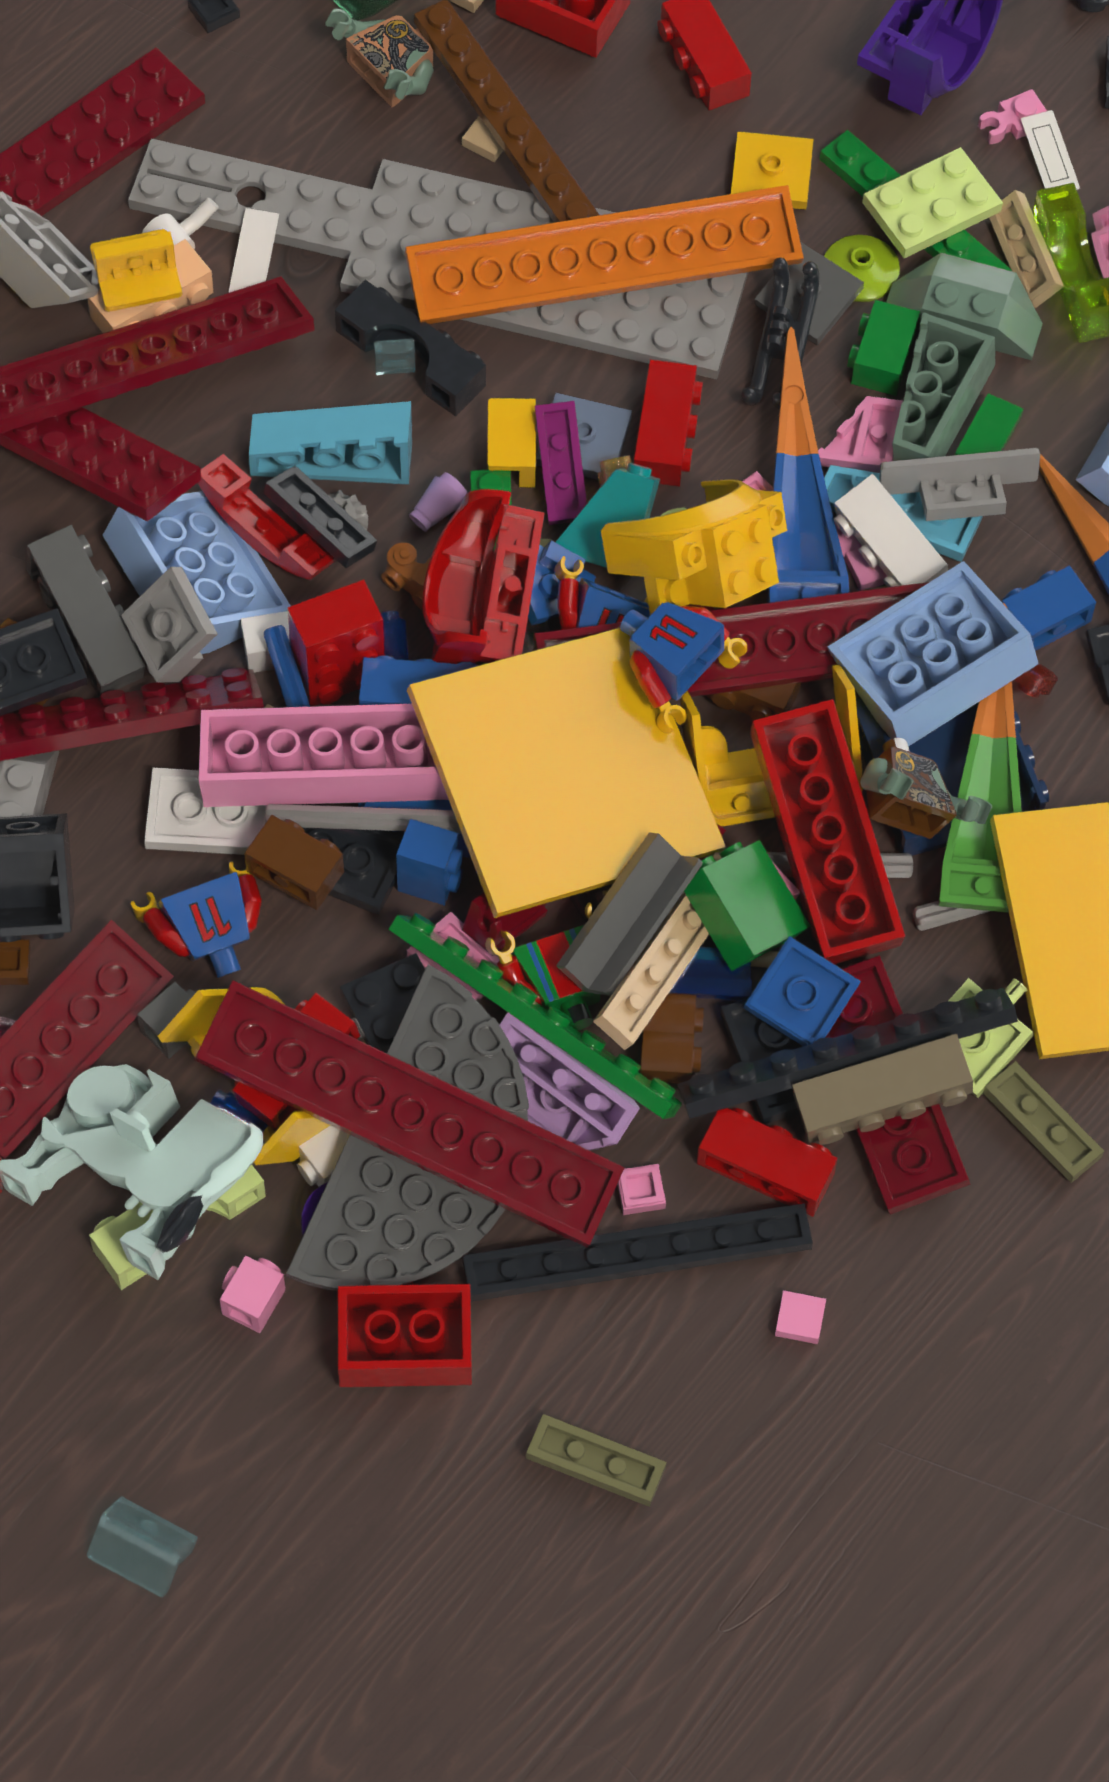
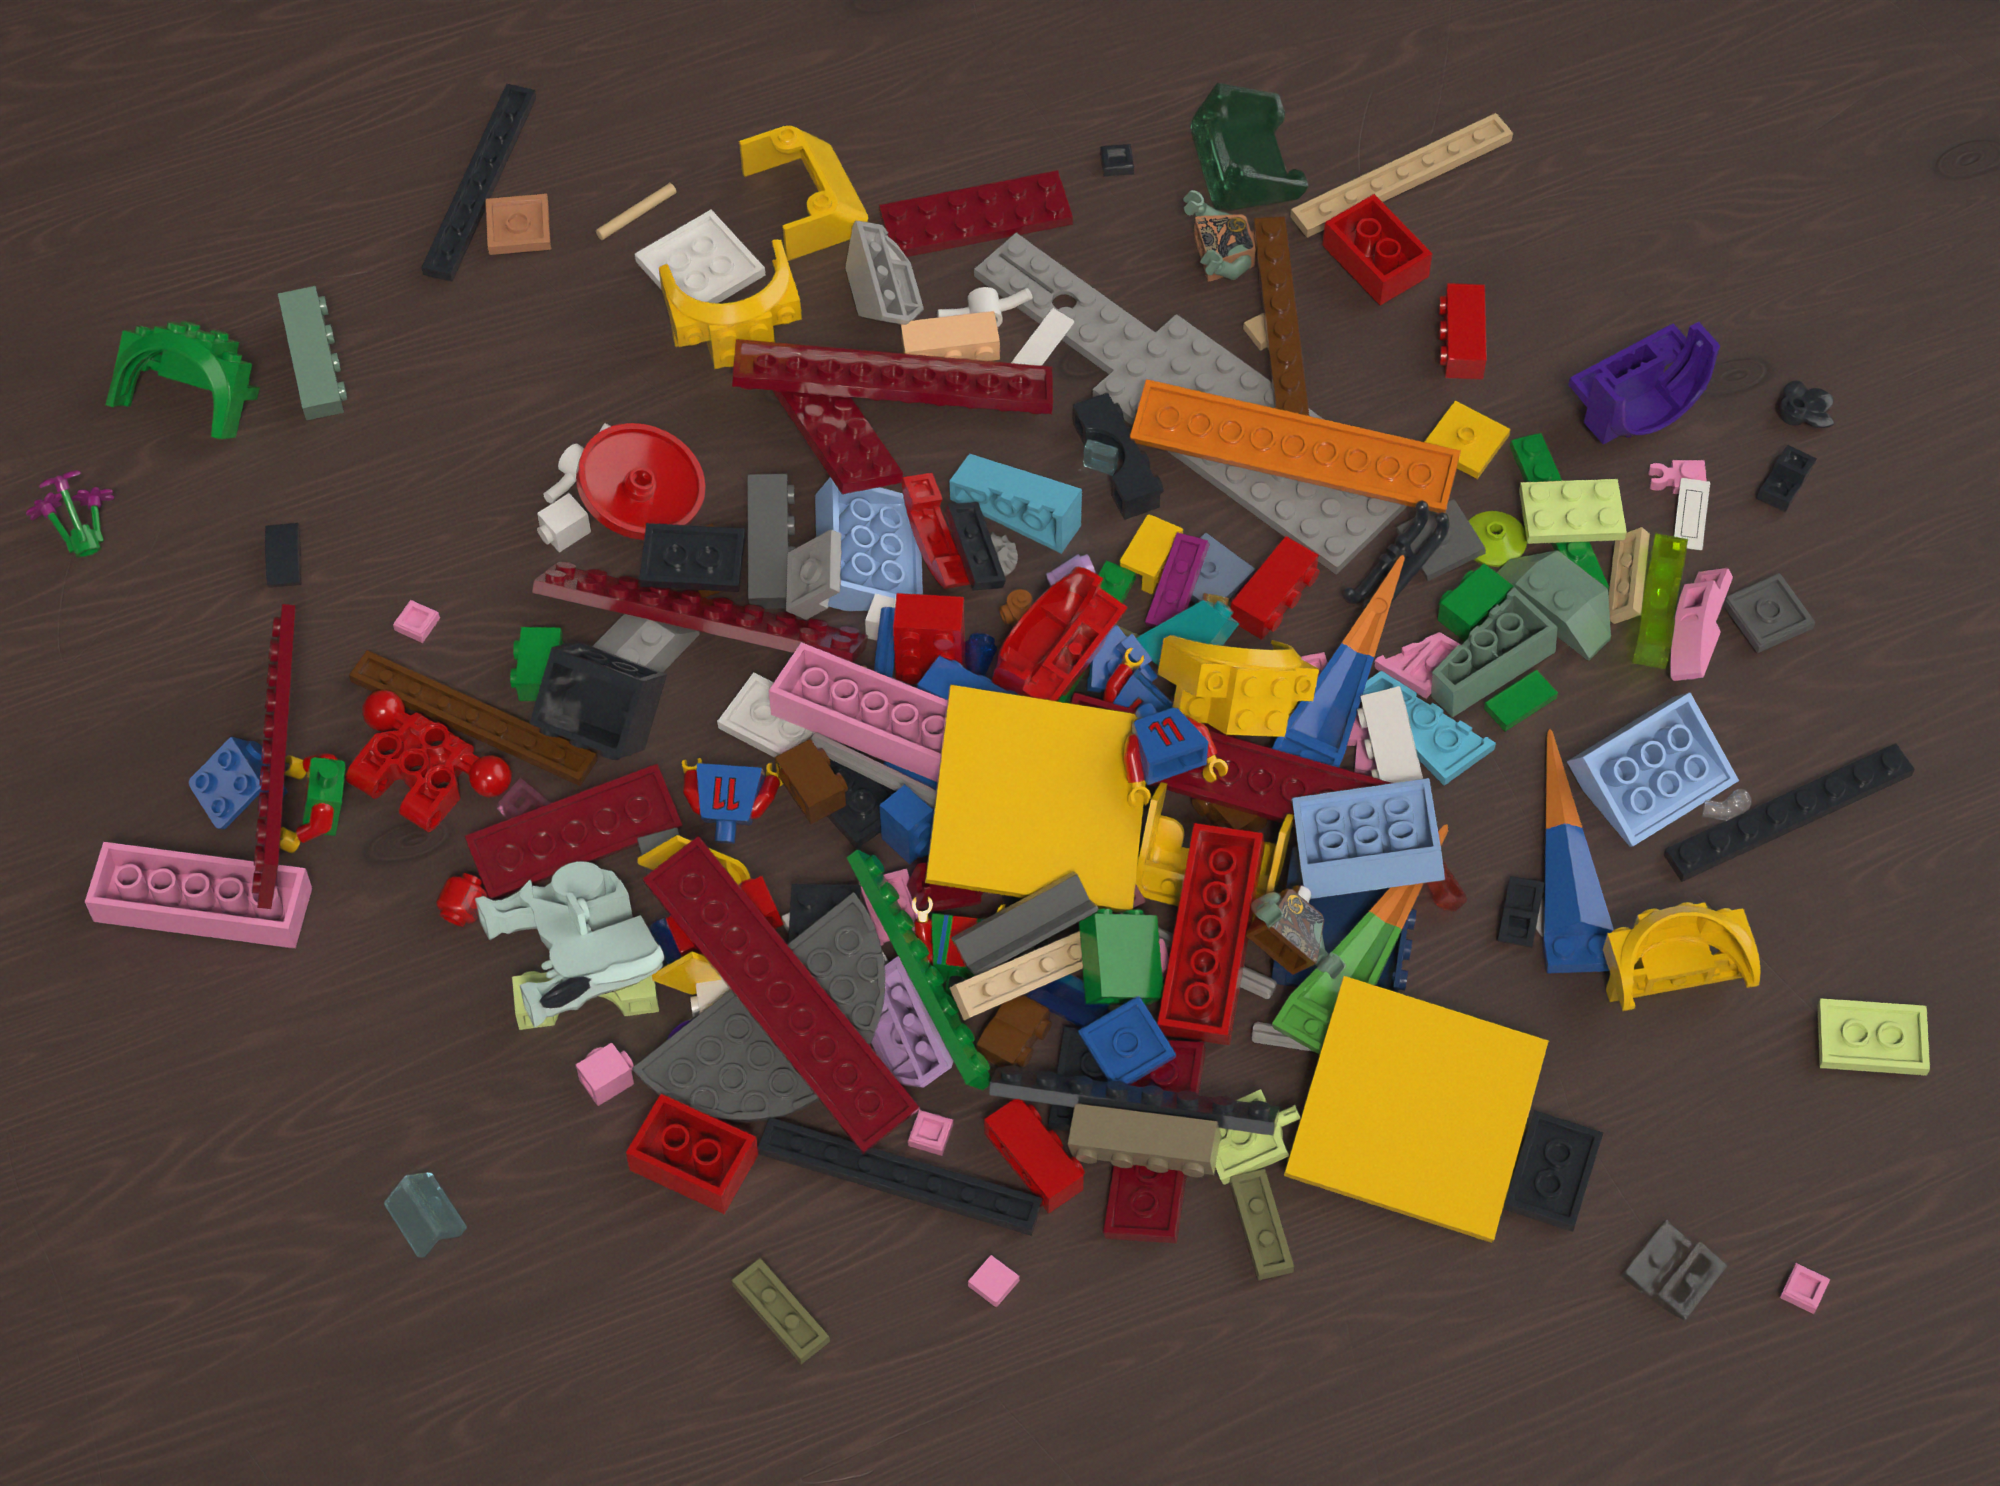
camera: 30 degrees right, 5 degrees down
(136, 269) = (942, 316): yellow bracket -> none
(961, 483) = (1470, 724): light grey bracket -> none
(1052, 606) = (1486, 848): blue brick -> none

